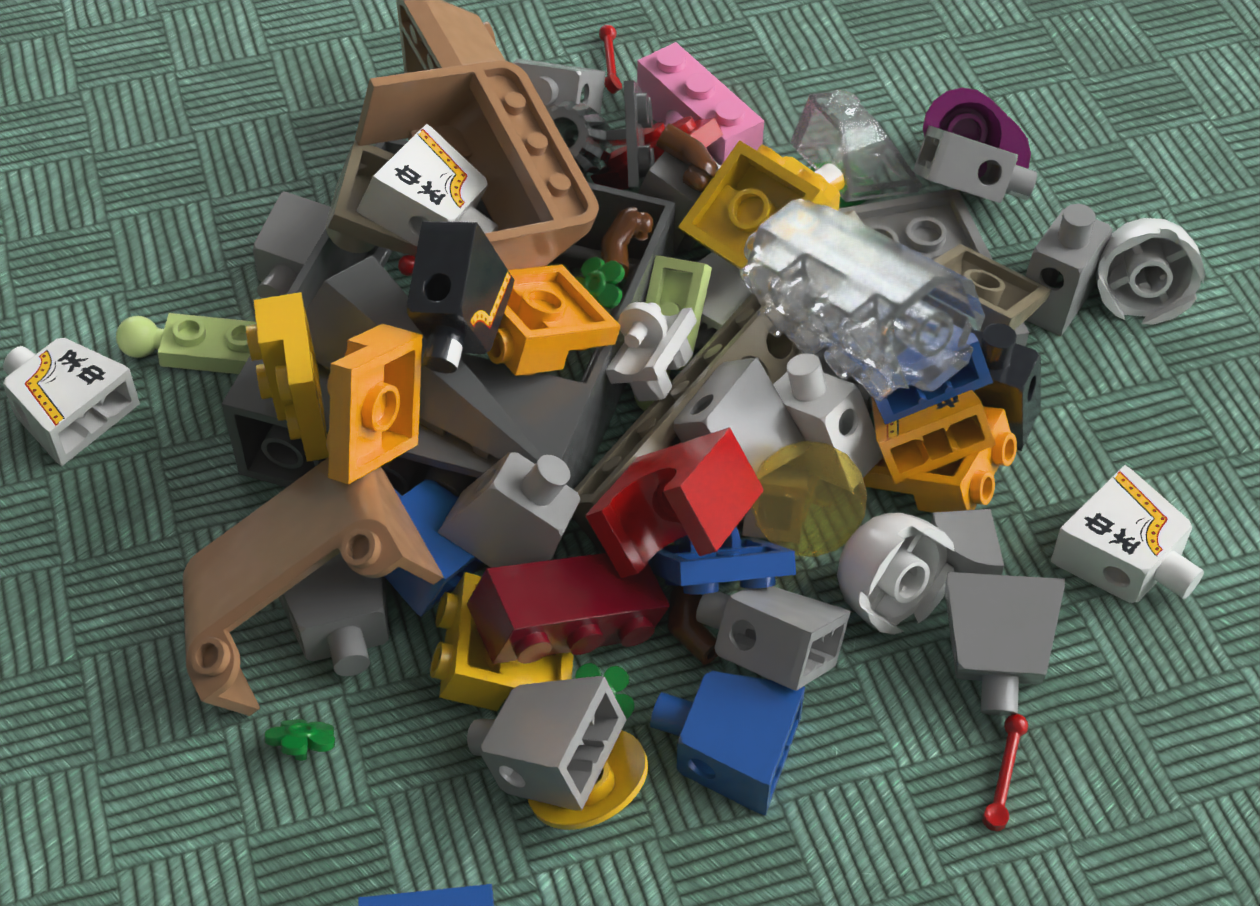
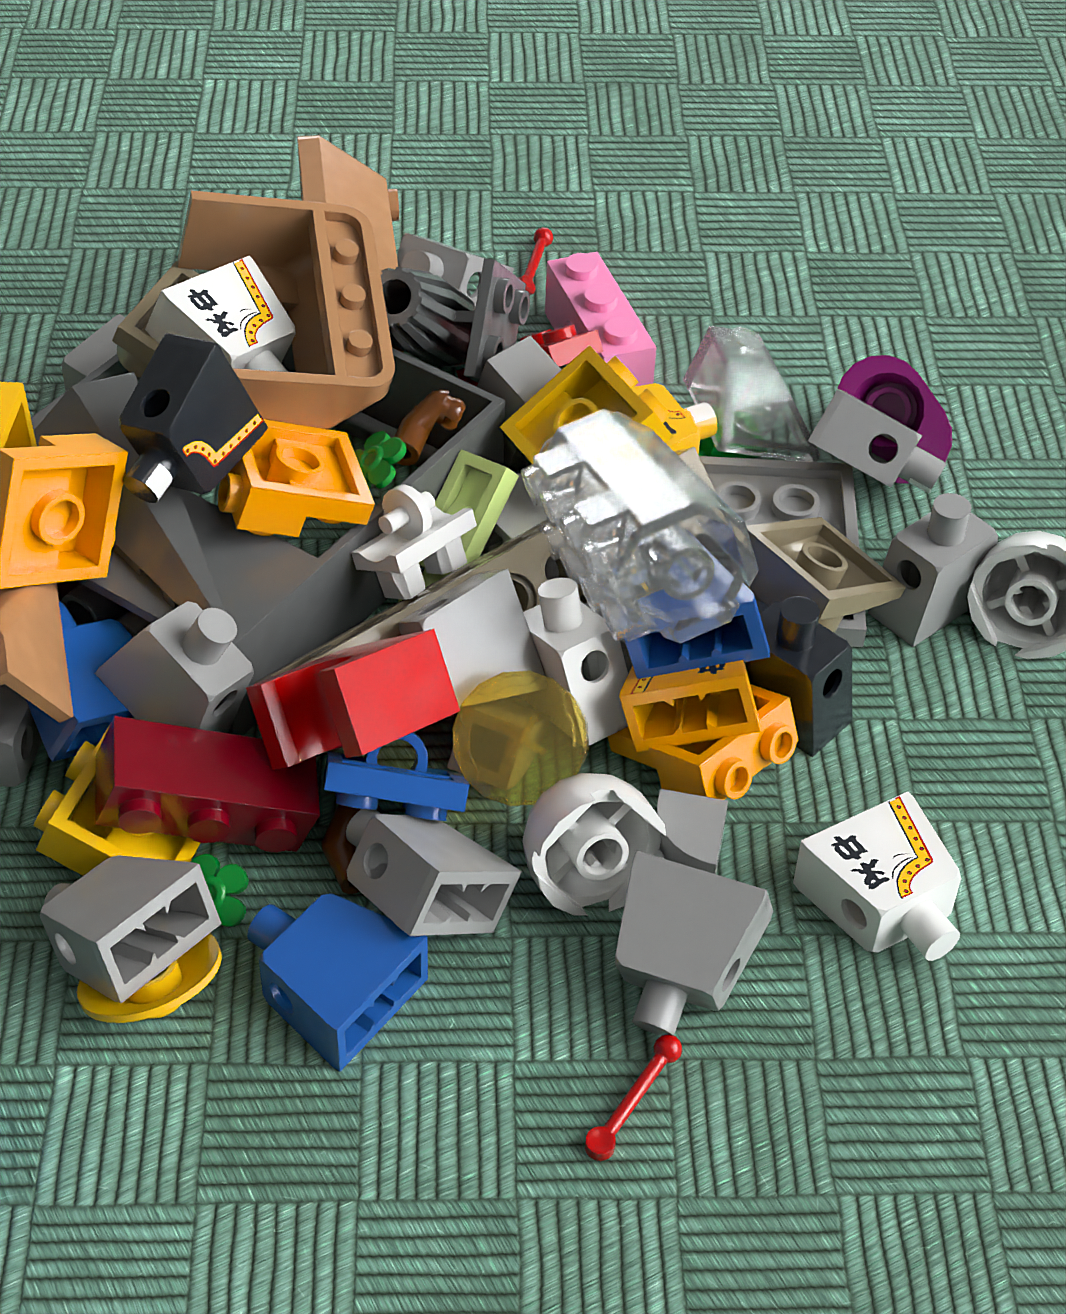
camera: 15 degrees right, 5 degrees down
(692, 153) = (536, 349): reddish brown arm -> none

